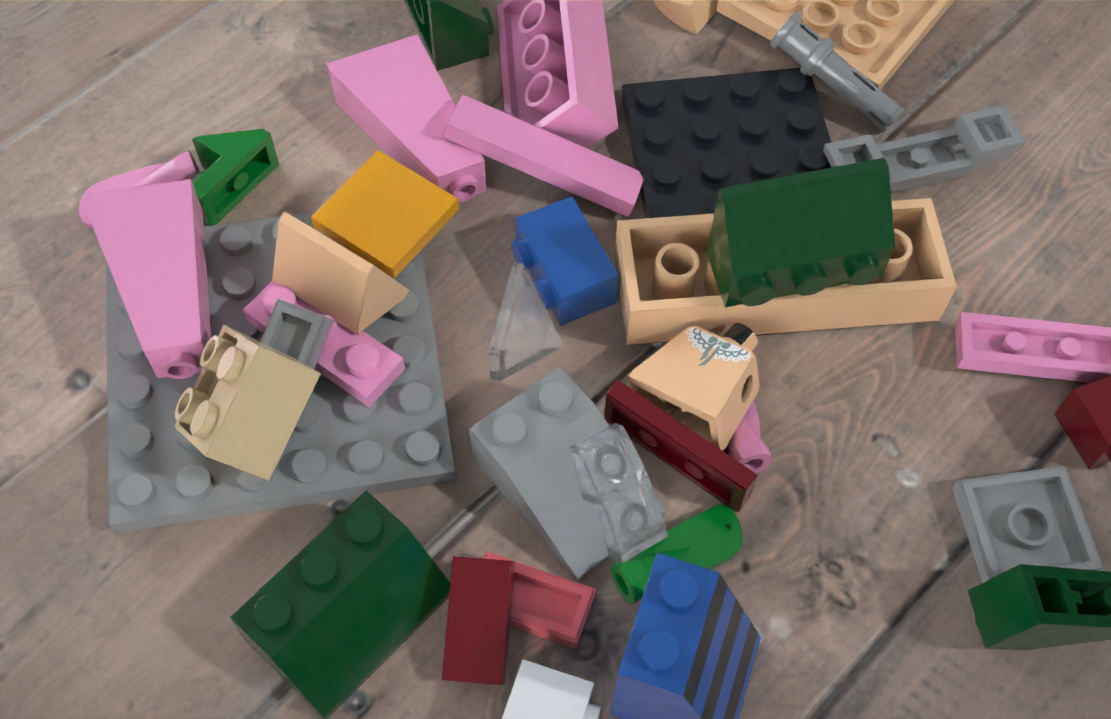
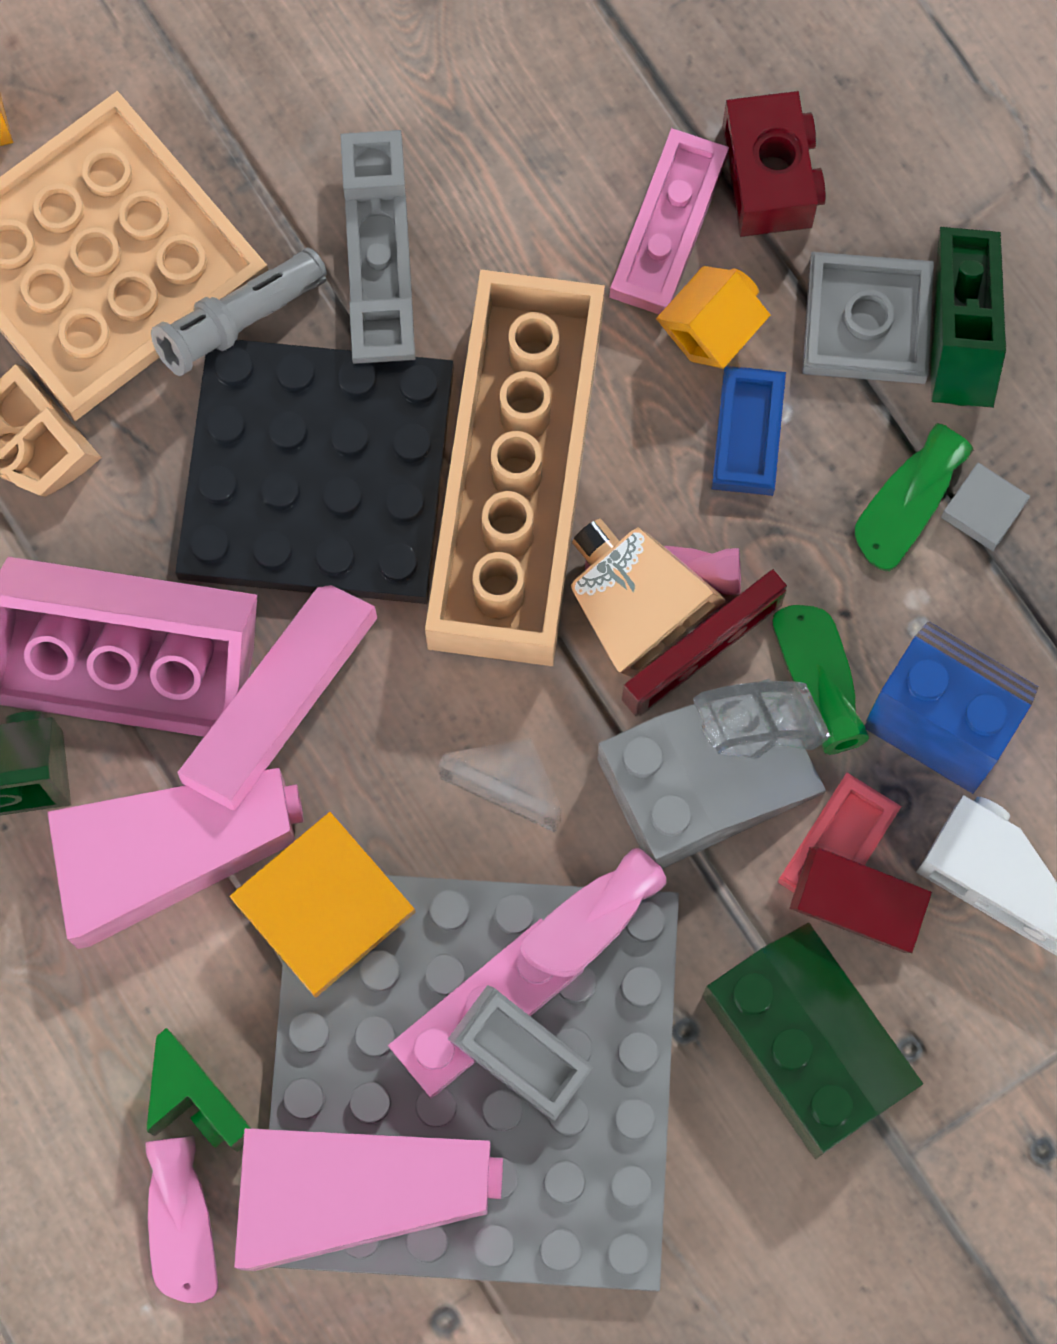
camera: 75 degrees left, 15 degrees up
(244, 402) = (575, 1102): tan slope -> none
(332, 276) = (420, 973): light nougat slope -> none
(410, 393) = (592, 917): none -> bright pink piece
(565, 261) = (432, 707): blue brick -> none
(802, 233) = (537, 432): dark green slope -> none
(870, 598) = (910, 499): none -> green piece
(882, 451) = (748, 430): none -> blue tile
(888, 667) = (985, 506): none -> light grey tile
(972, 392) = (714, 315): none -> light orange brick

